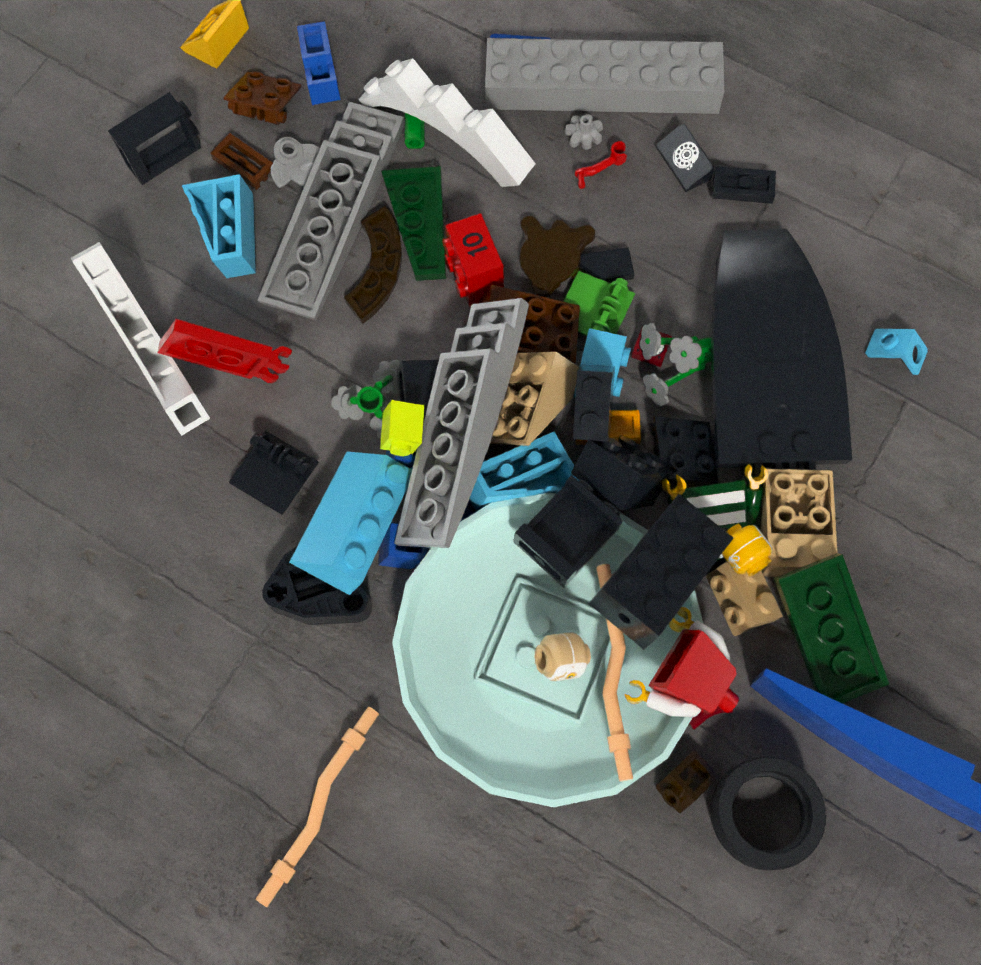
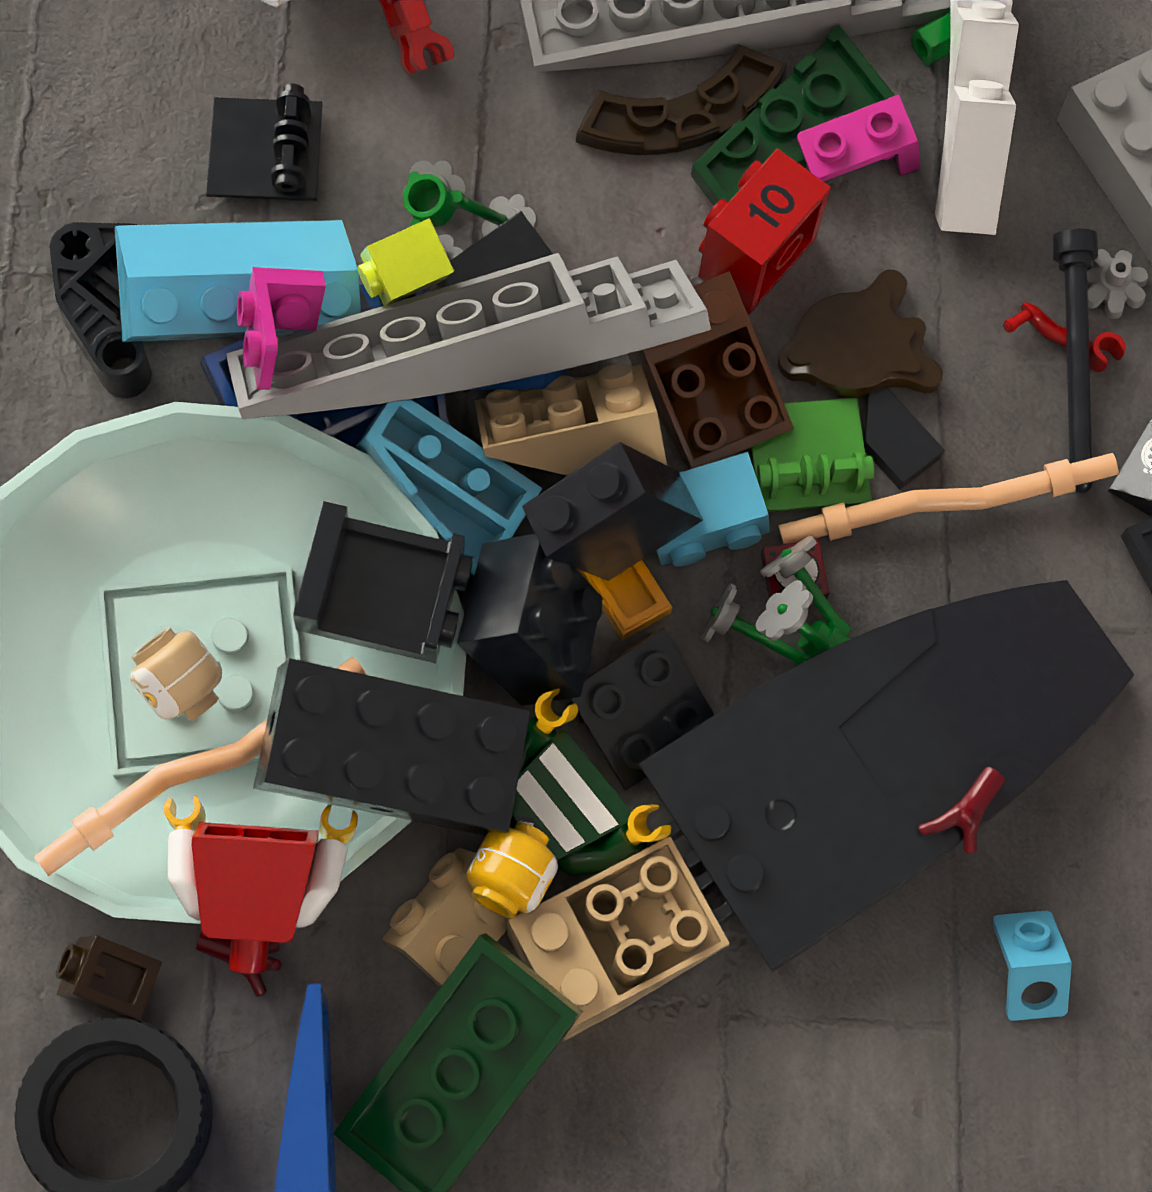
camera: 50 degrees right, 0 degrees up
(393, 506) = (276, 301): none -> dark pink bracket
(451, 192) = (862, 139): none -> dark pink bracket
(568, 136) = (1075, 253): none -> black piece
(638, 311) = (1057, 478): none -> light nougat bar
(828, 326) = (969, 810): none -> dark red bar

